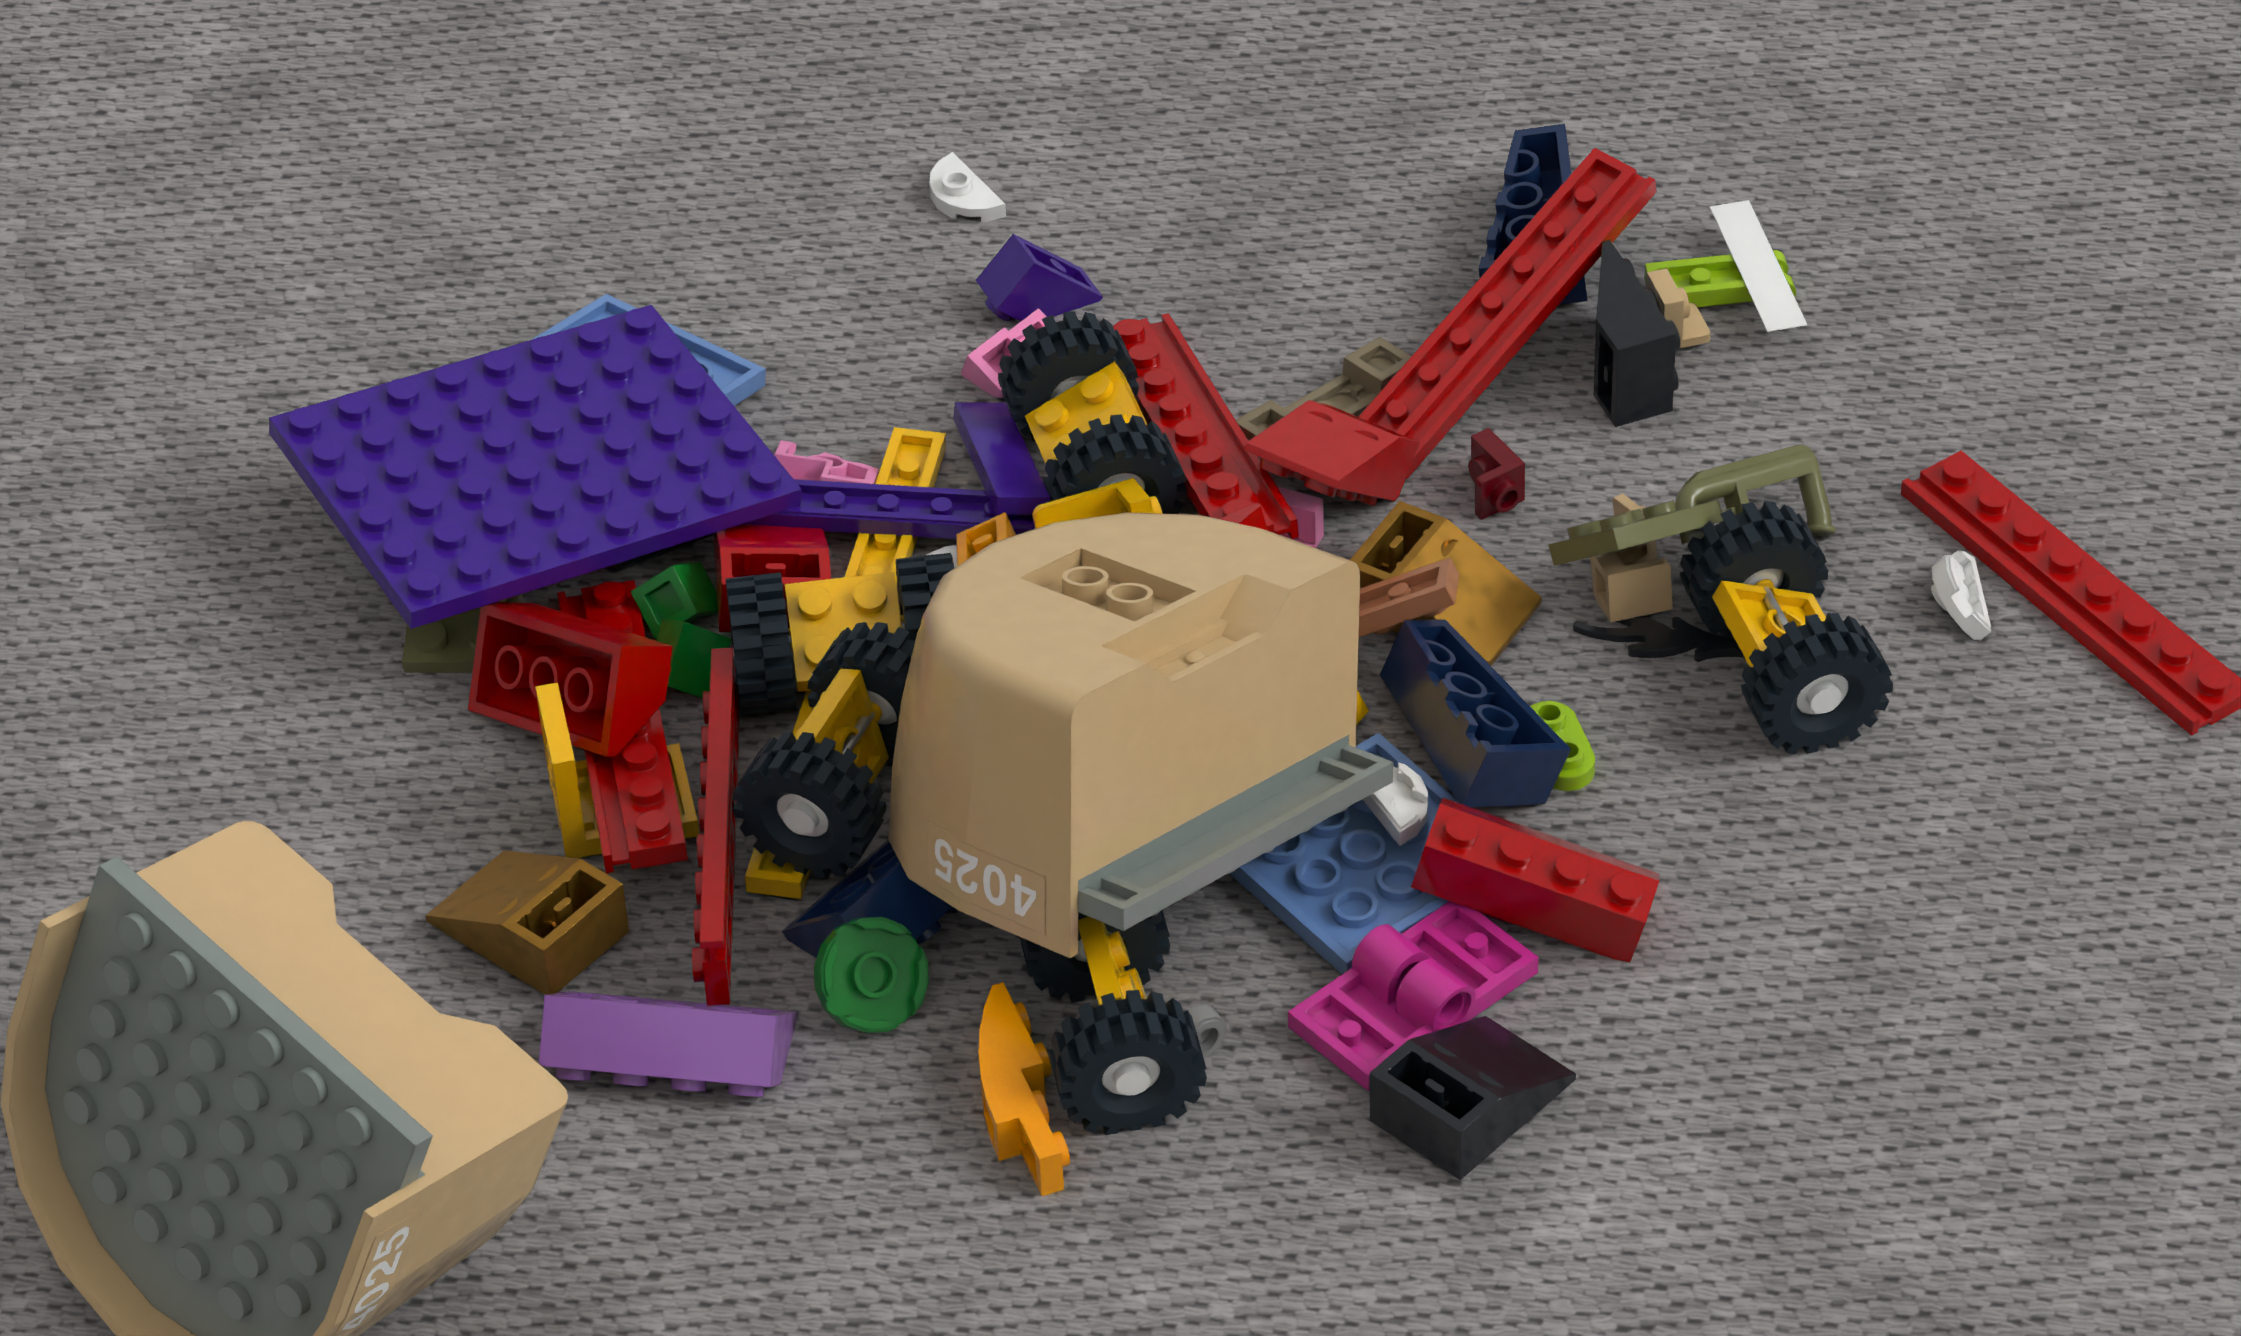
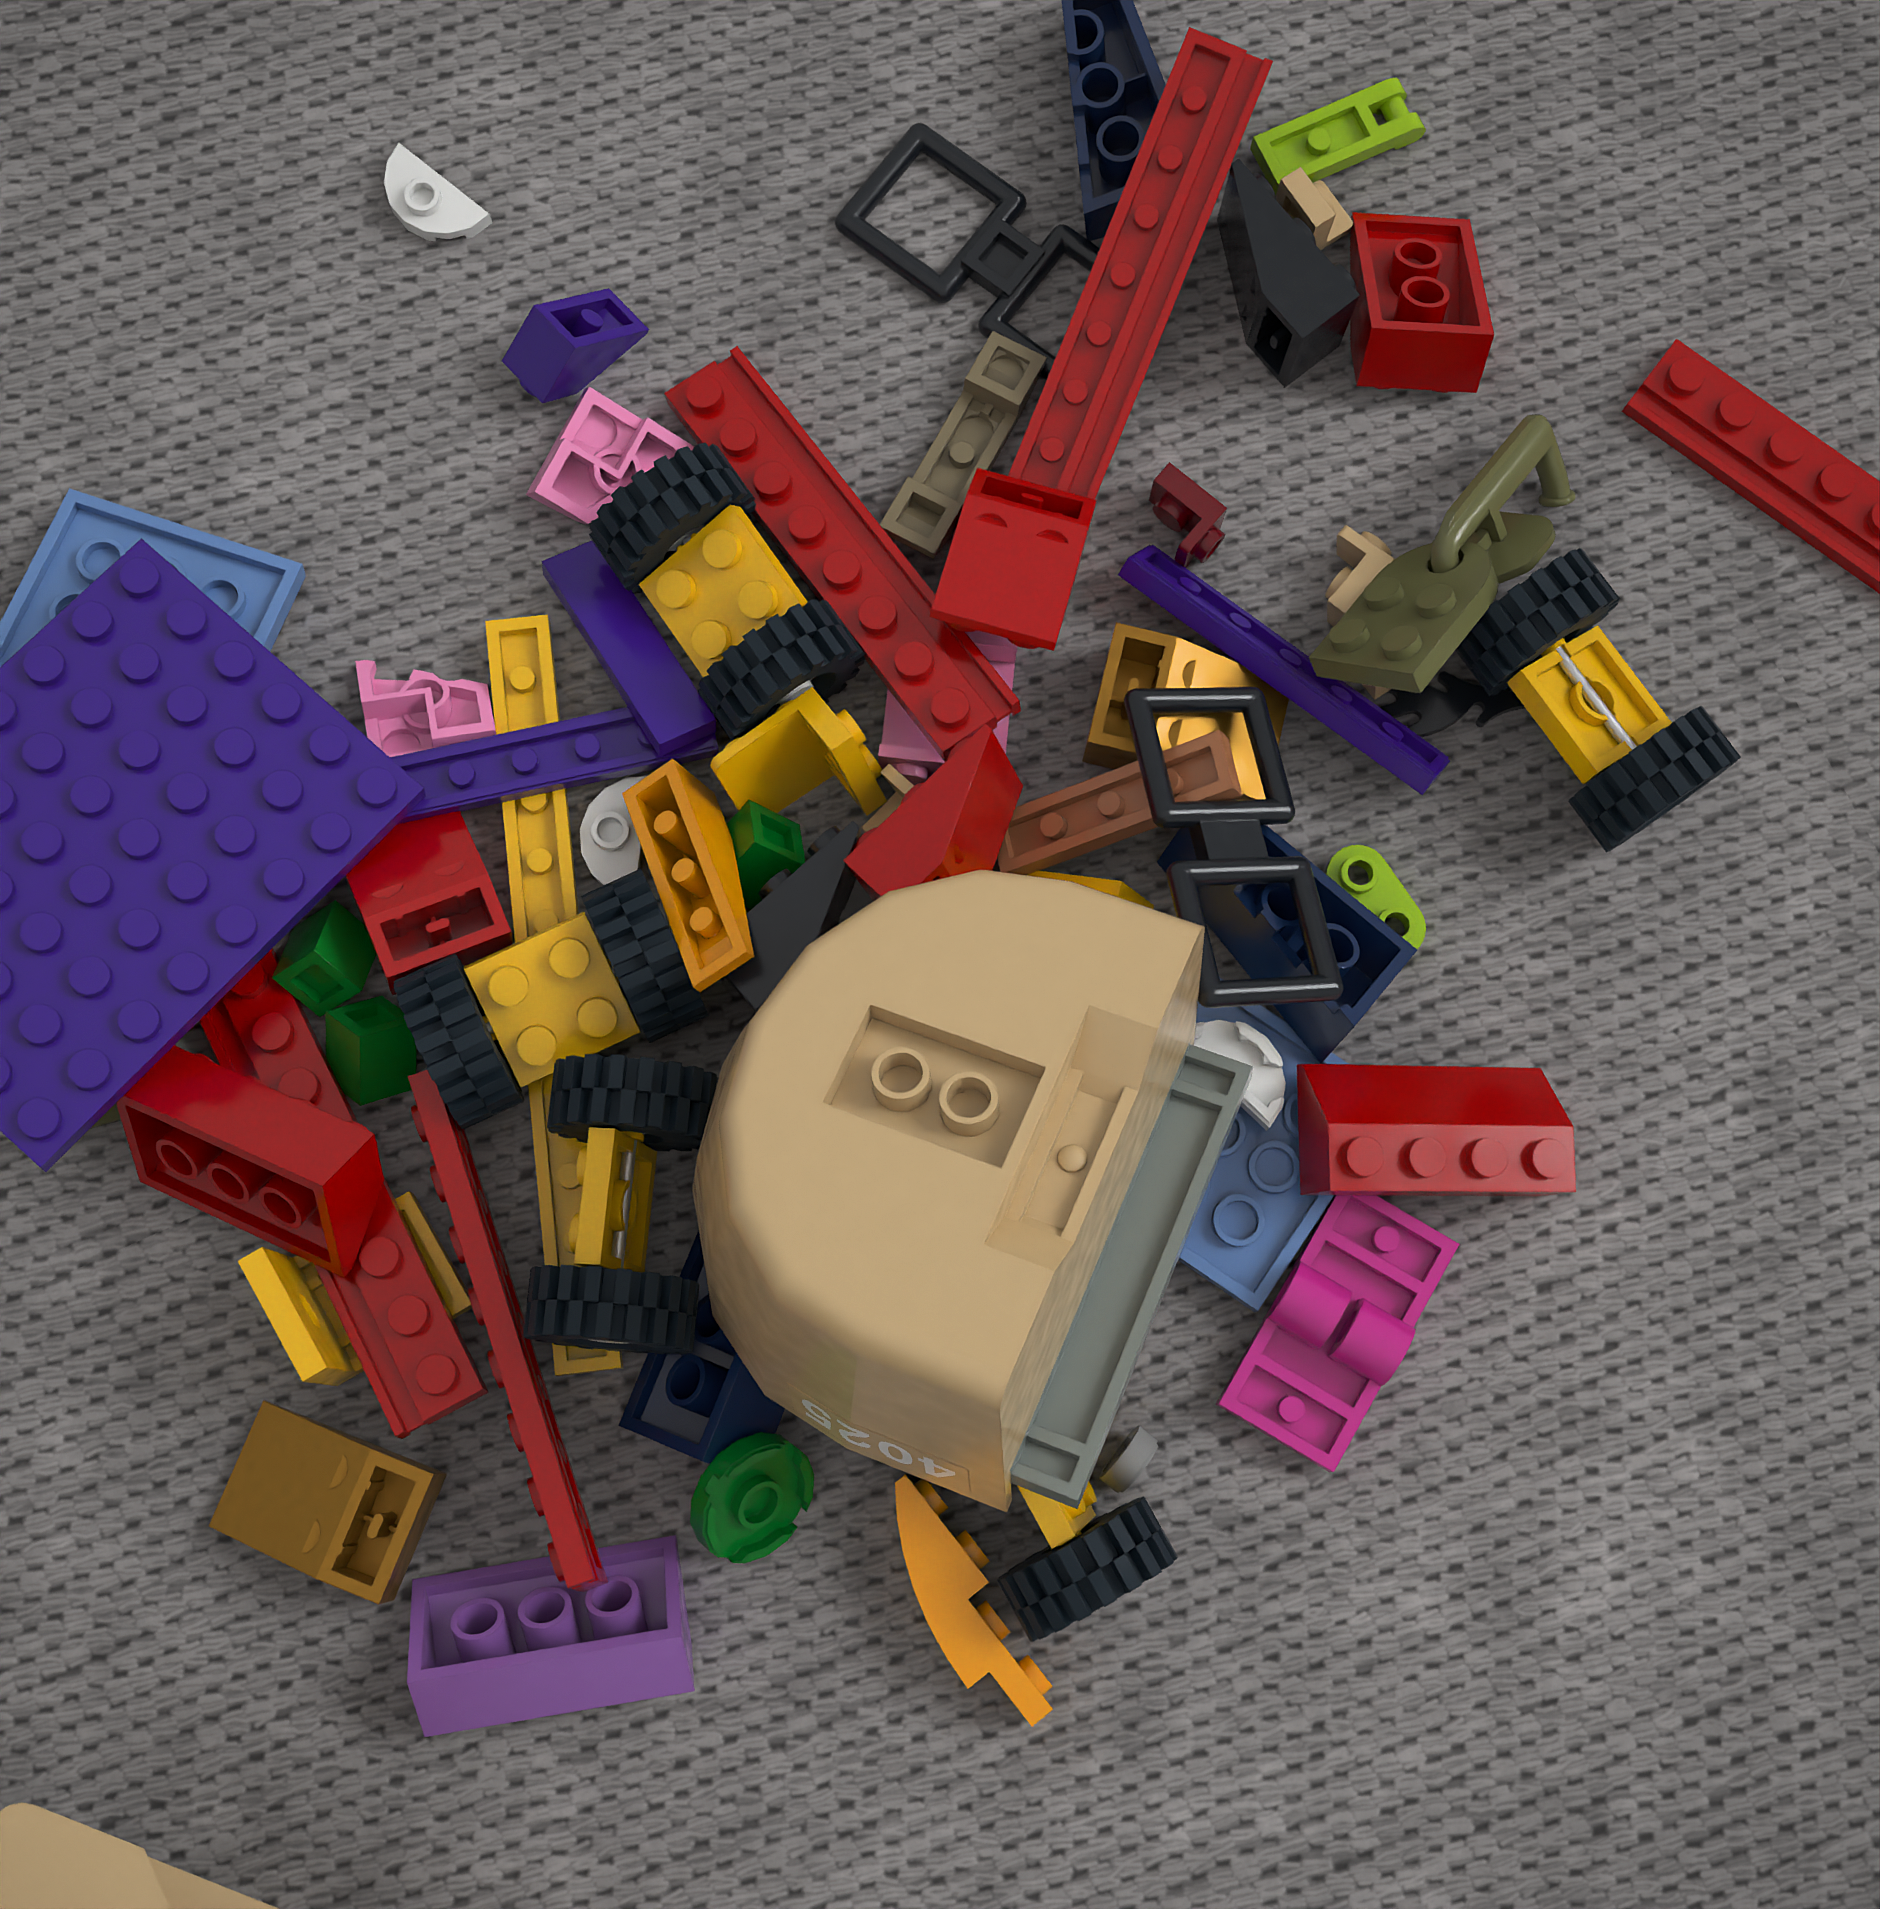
camera: 25 degrees left, 35 degrees up
(1406, 305) = (993, 256): none -> black bar
(1432, 631) = (1232, 844): none -> black bar
(1463, 1091) = (1447, 1456): black slope -> none
(1539, 577) = (1284, 668): none -> dark purple tile
(1740, 390) = (1419, 304): none -> red slope
(1758, 266) = (1380, 110): white sticker -> none
(1961, 594) = (1736, 558): white plate -> none

